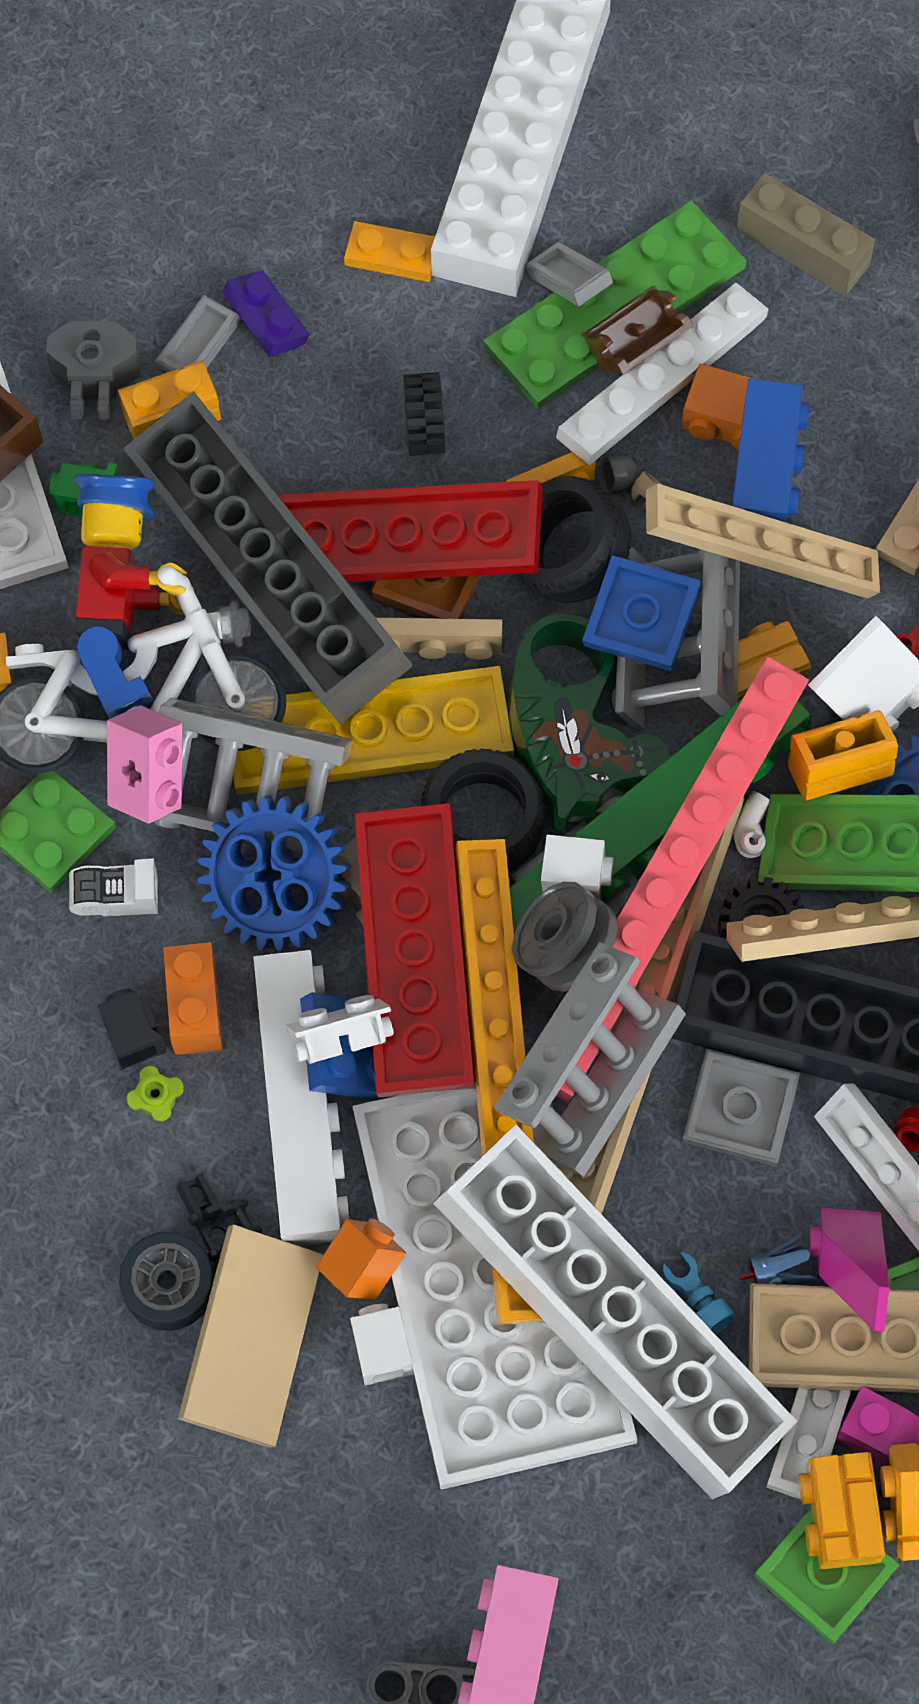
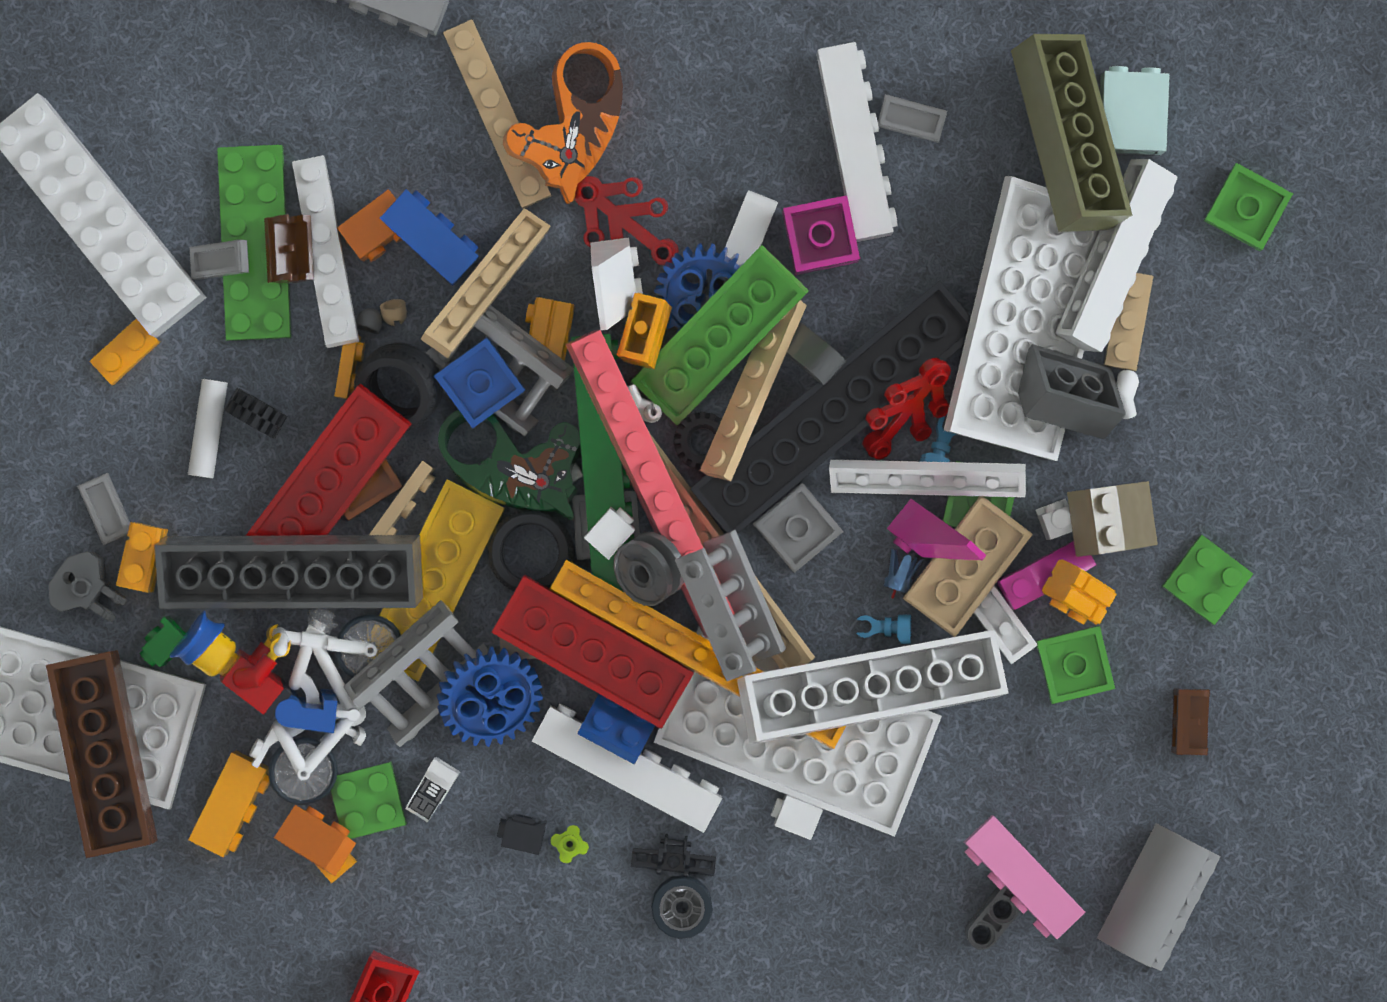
camera: 60 degrees left, 20 degrees up
(144, 764) = (378, 730): bright pink brick -> none
(192, 998) = (530, 788): orange brick -> none
(250, 1337) = (745, 882): tan tile -> none
(265, 313) = (116, 457): dark purple plate -> none
(322, 1030) = (617, 712): white hinge -> none
(361, 1258) = (745, 797): orange brick -> none
(365, 384) = (207, 428): none -> white piece
(805, 234) = (290, 98): dark tan brick -> none
(843, 1511) = (1056, 638): light orange brick -> none

